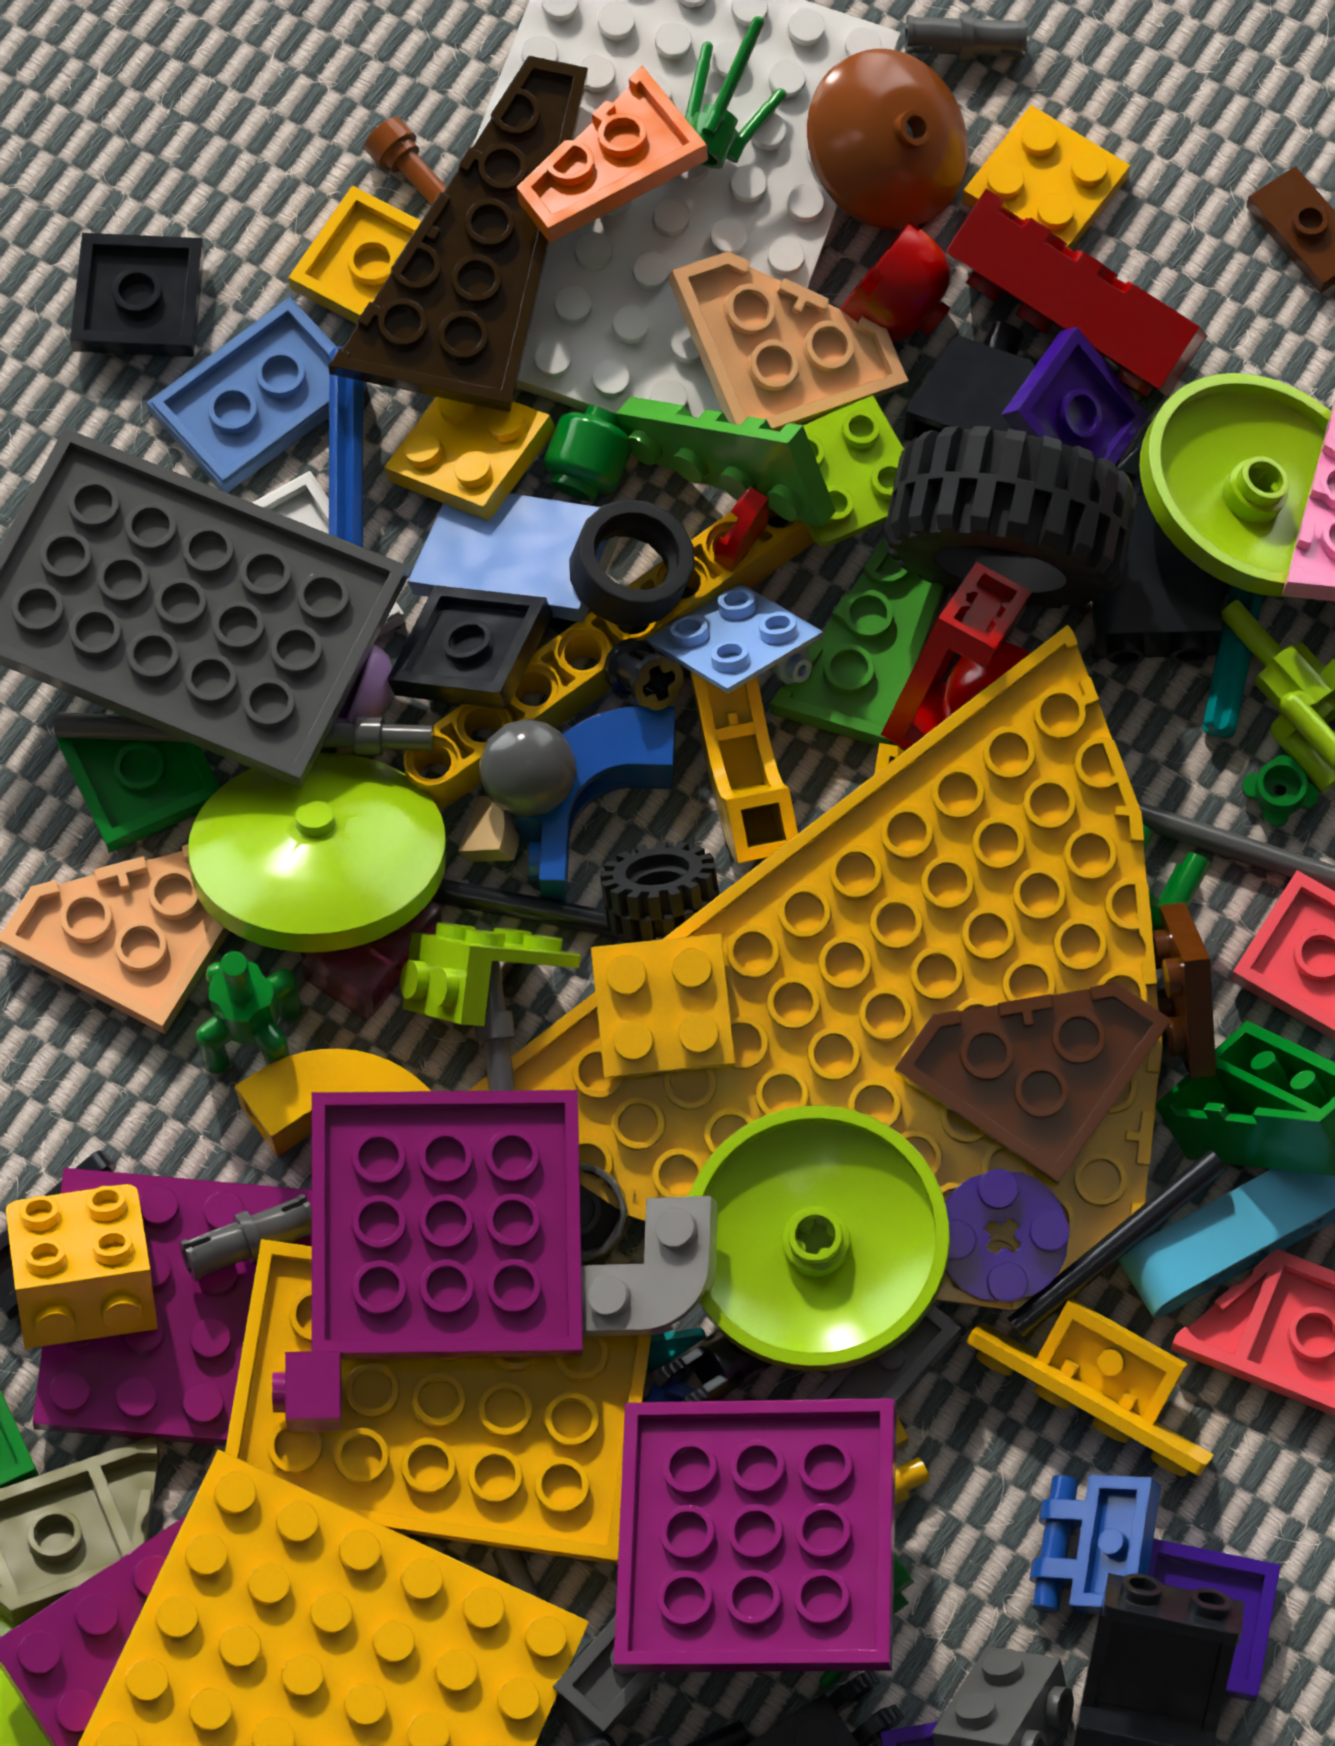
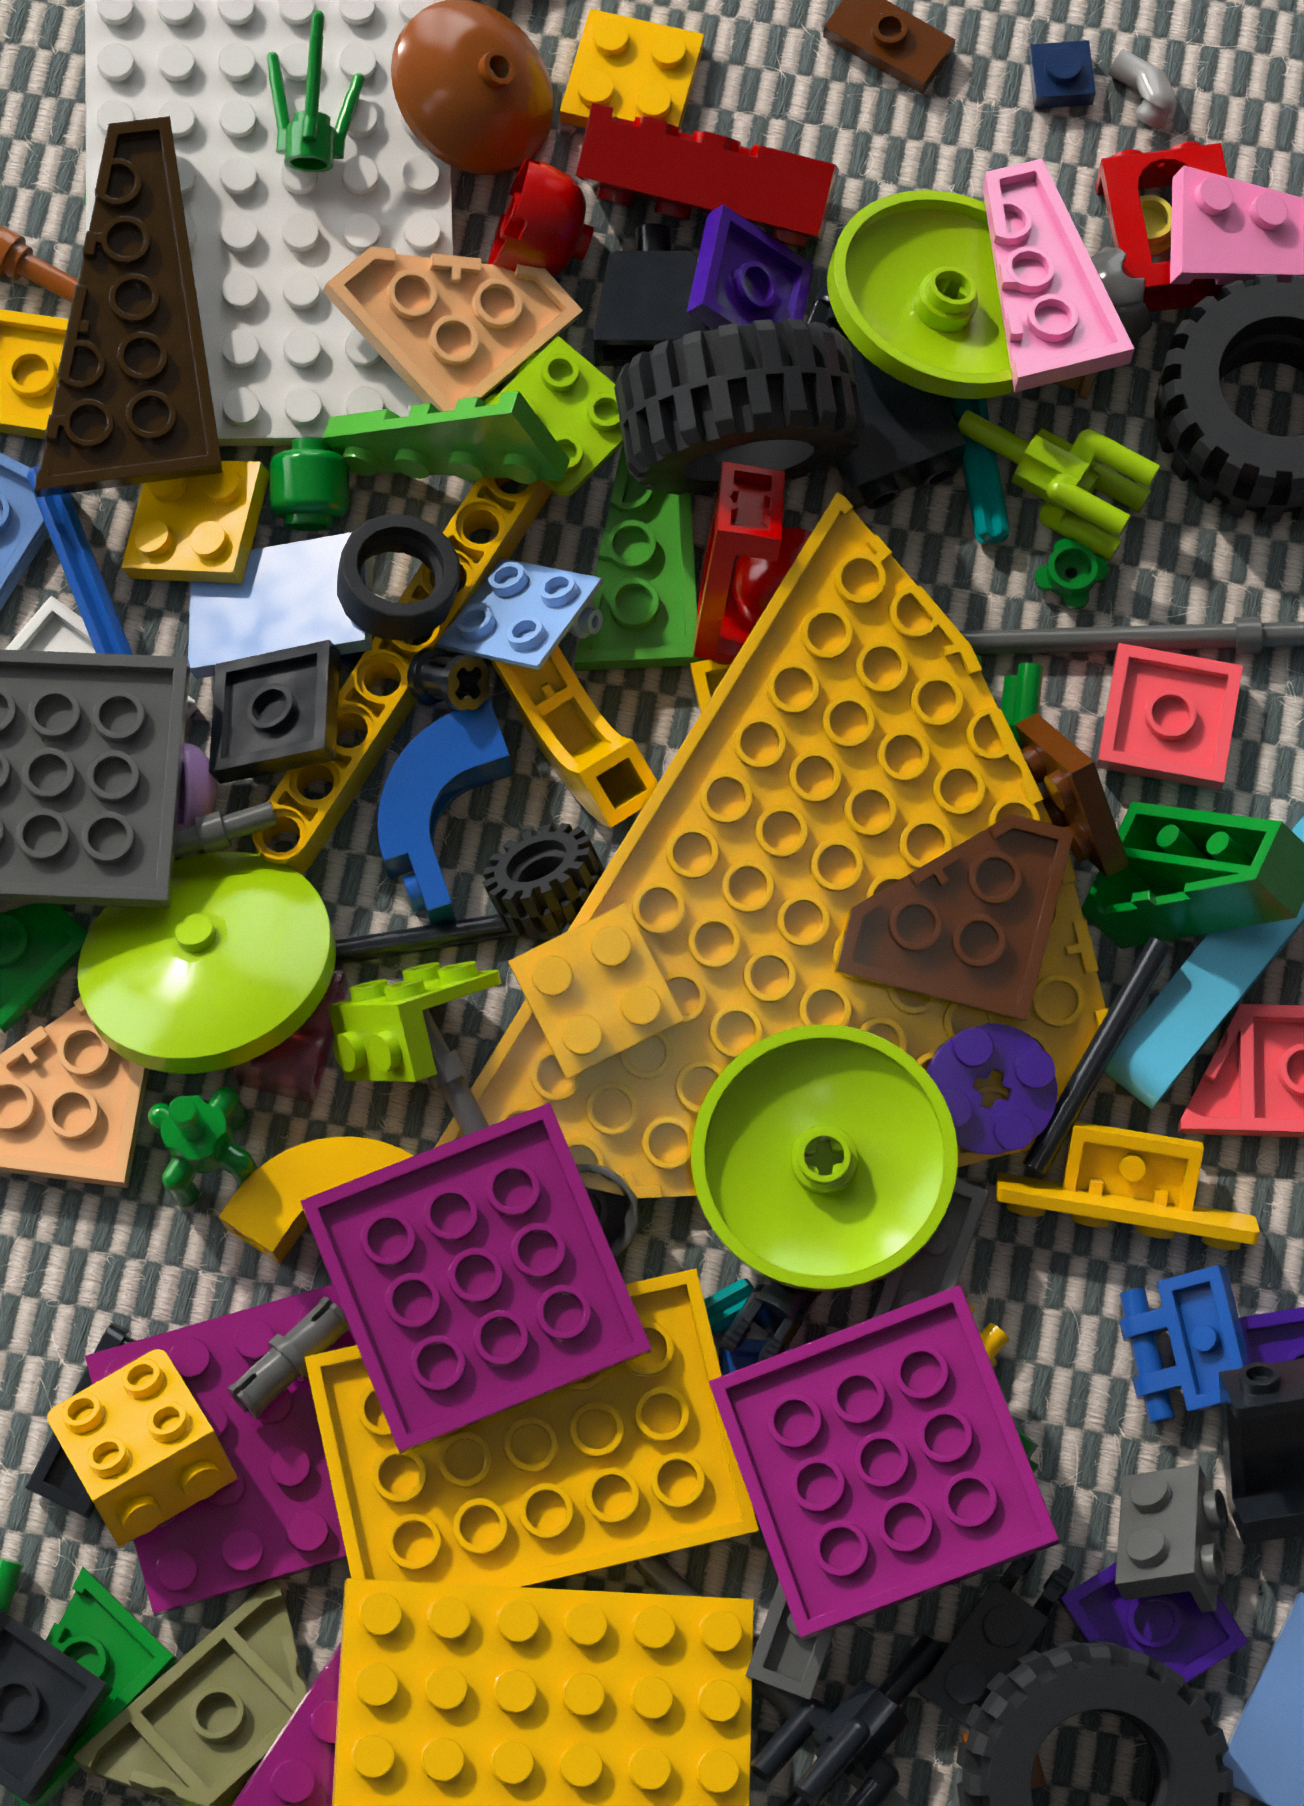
camera: 20 degrees left, 5 degrees up
(309, 1391) = (411, 1487): magenta plate -> none
(489, 834) = (360, 881): tan tile -> none
(527, 768) = (376, 809): dark grey hair -> none
(615, 159) = (234, 192): orange wing -> none
(669, 1283) = (707, 1251): light grey plate -> none
(752, 521) = (492, 495): red tile -> none

